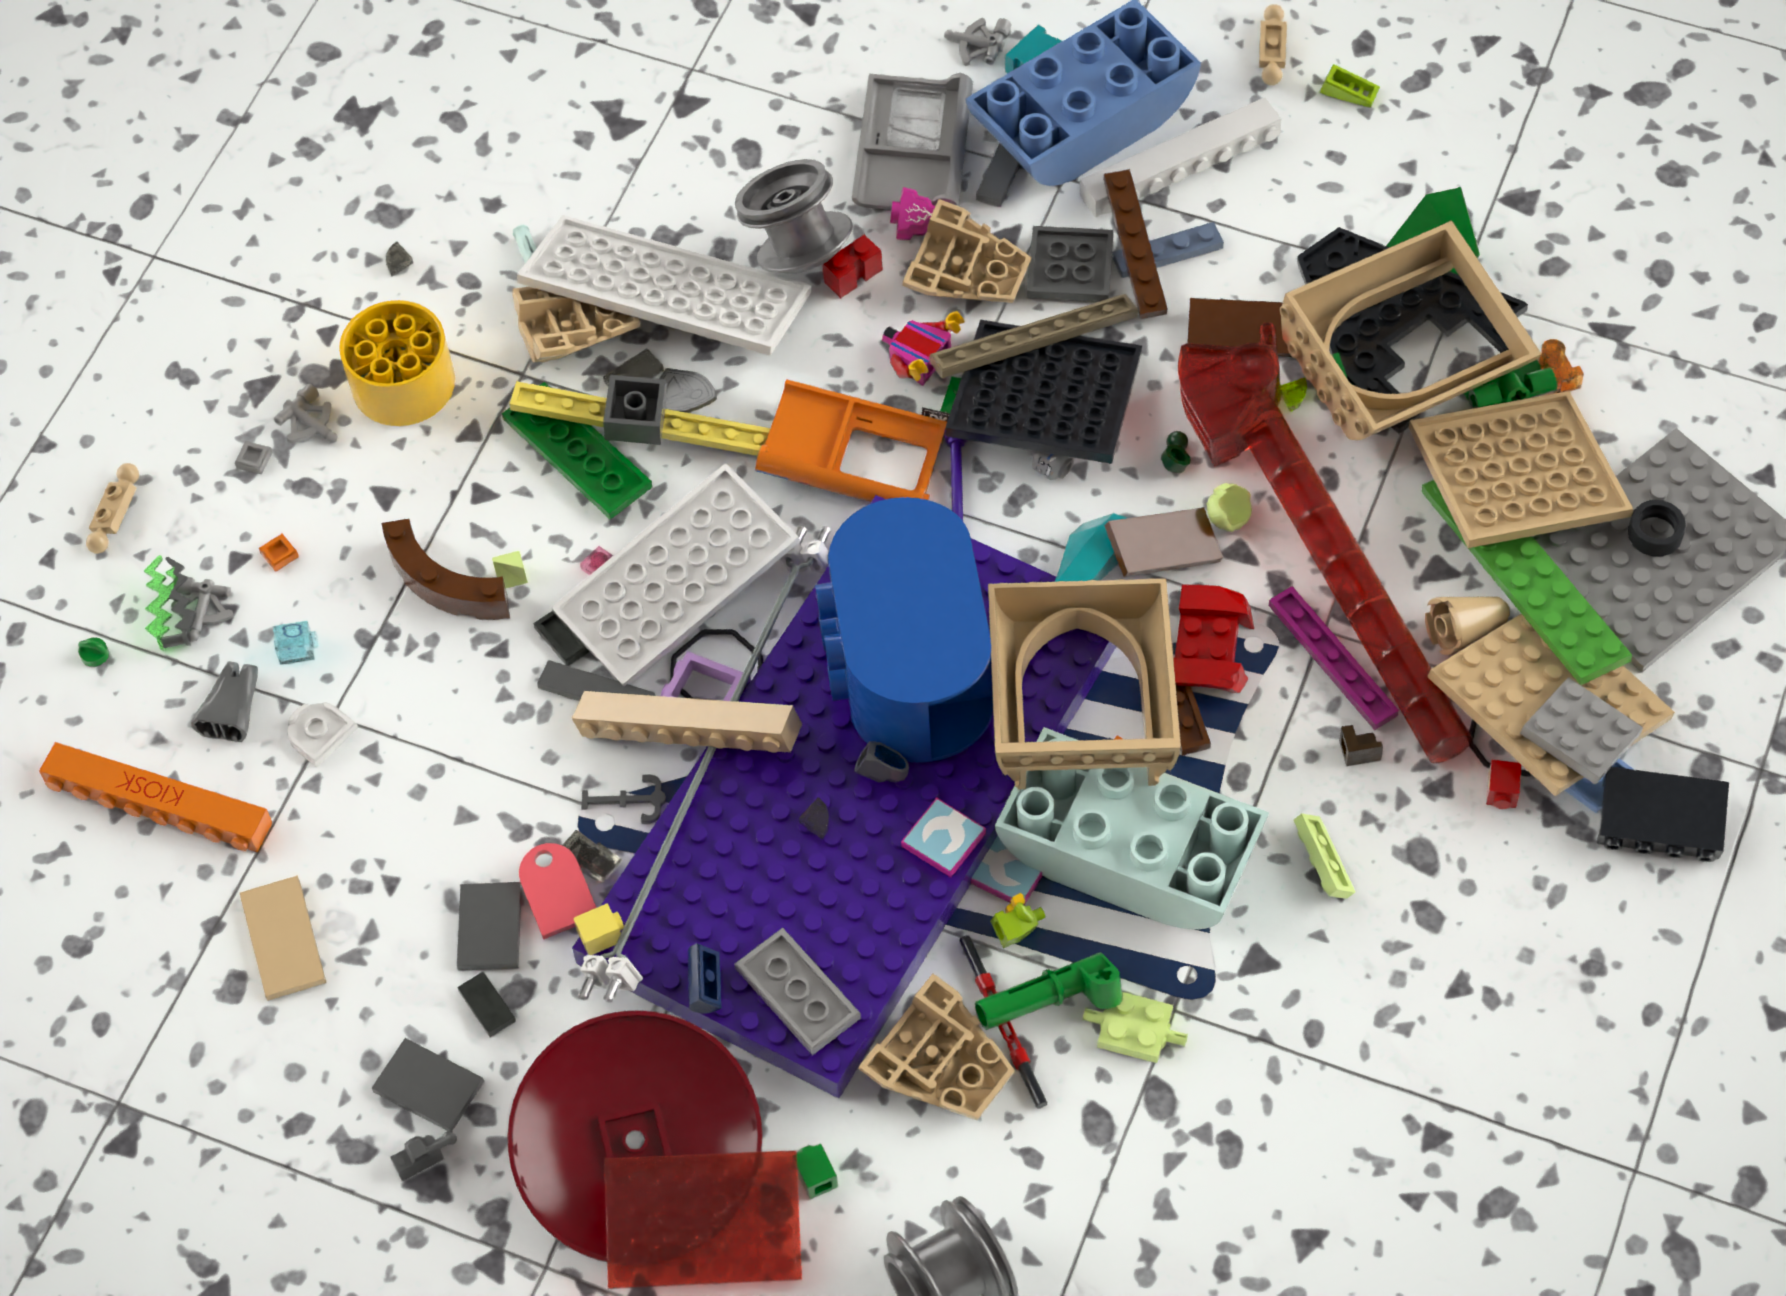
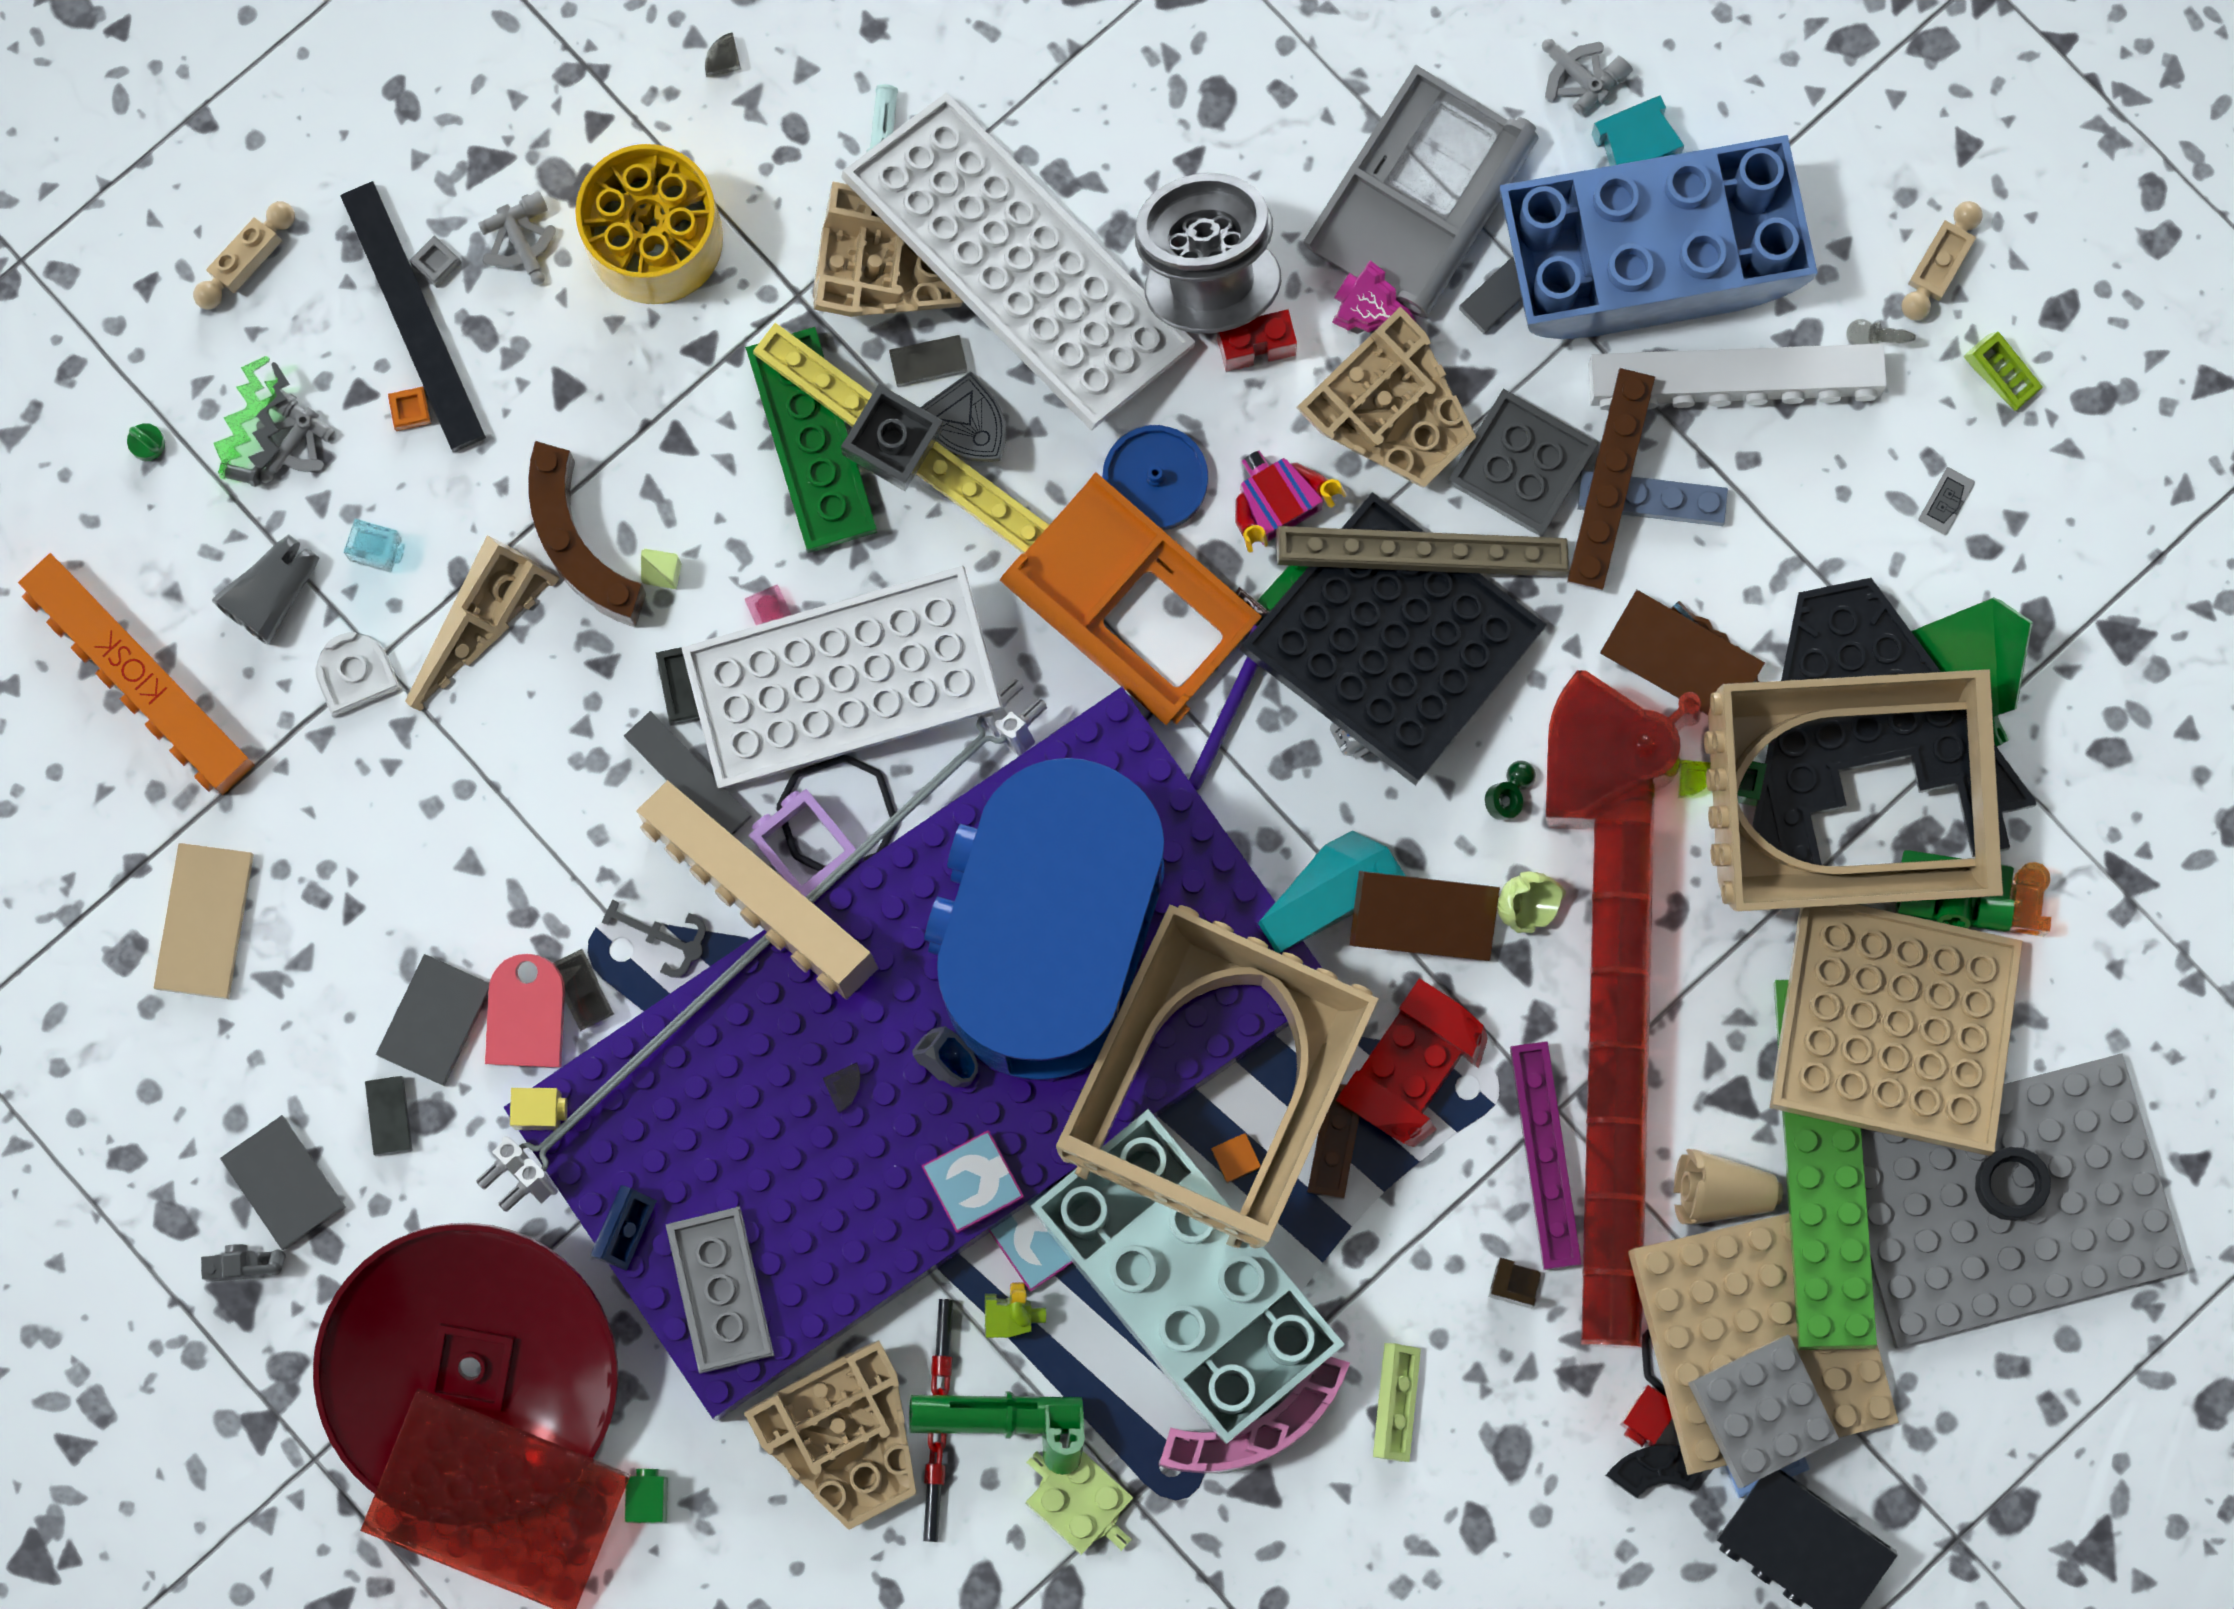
camera: 25 degrees right, 20 degrees up
(254, 496) = (413, 316): none -> black tile
(394, 648) = (491, 596): none -> tan wedge
(830, 367) = (1158, 473): none -> blue piece
(1211, 946) = (1263, 1437): none -> bright pink brick
(1270, 94) = (1864, 332): none -> clear smoke bar
(1358, 174) = (1946, 500): none -> sticker
(1530, 816) = (1652, 1467): none -> black tile

